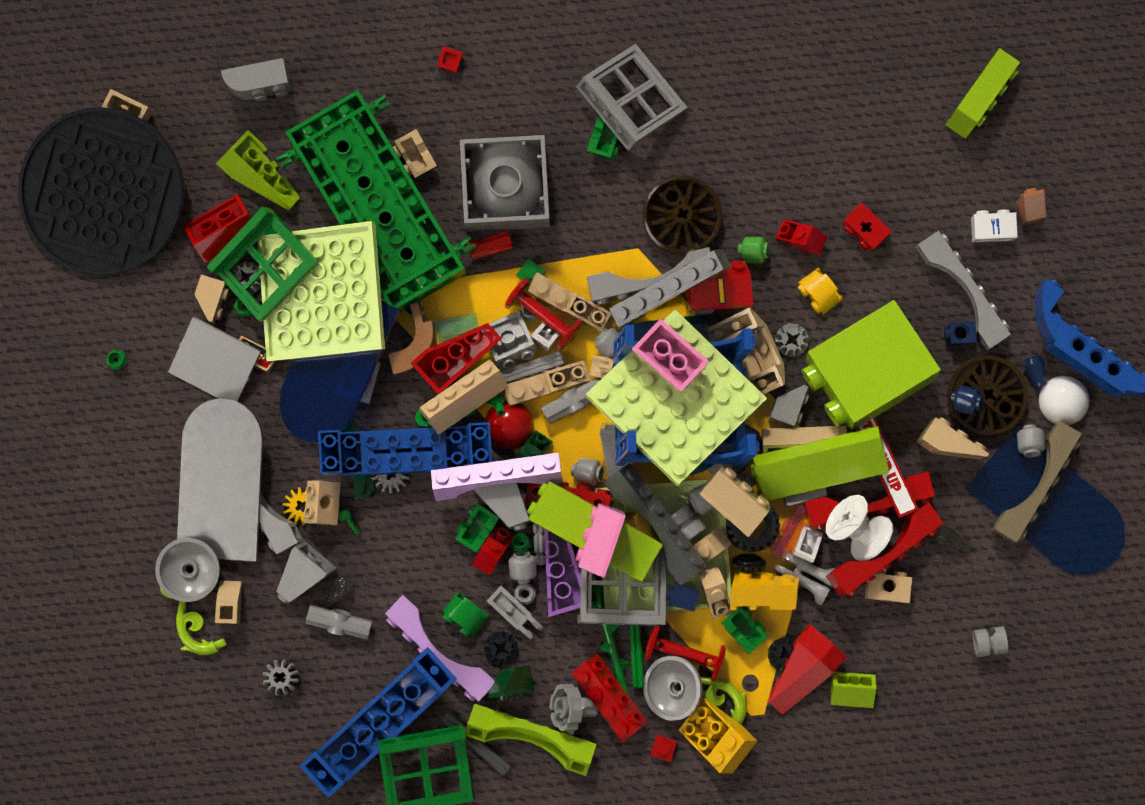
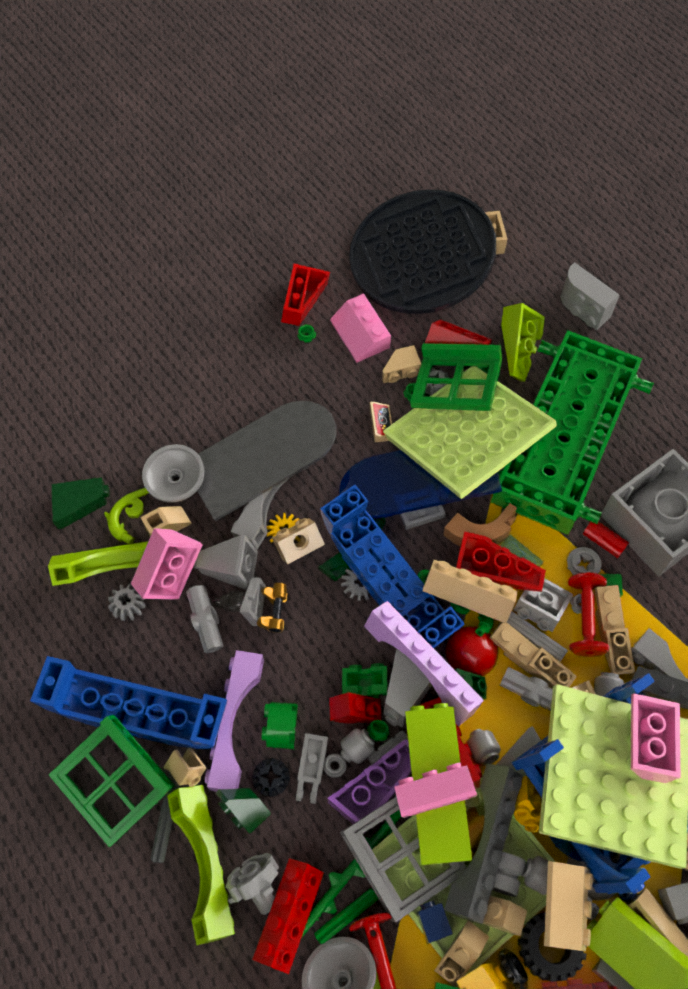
camera: 55 degrees right, 20 degrees down
(70, 335) = (303, 291): none -> red wedge
(146, 307) = (361, 328): none -> bright pink slope
(154, 666) = (77, 499): none -> dark green slope
(214, 360) = (355, 395): light grey piece -> none
(220, 700) = (79, 565): none -> lime arch
(275, 627) = (165, 565): none -> bright pink slope
(344, 515) = (300, 567): green hand -> none
(351, 573) = (253, 601): none -> light grey wing
(358, 550) = (277, 596): none -> pearl gold piece
(414, 153) = (628, 433): tan cylinder -> none
(454, 709) = (186, 768): none -> tan window
(494, 272) = (586, 555): none -> light grey gear
(545, 336) = (569, 629): white slope -> none
(651, 474) = (528, 806): none -> yellow cylinder

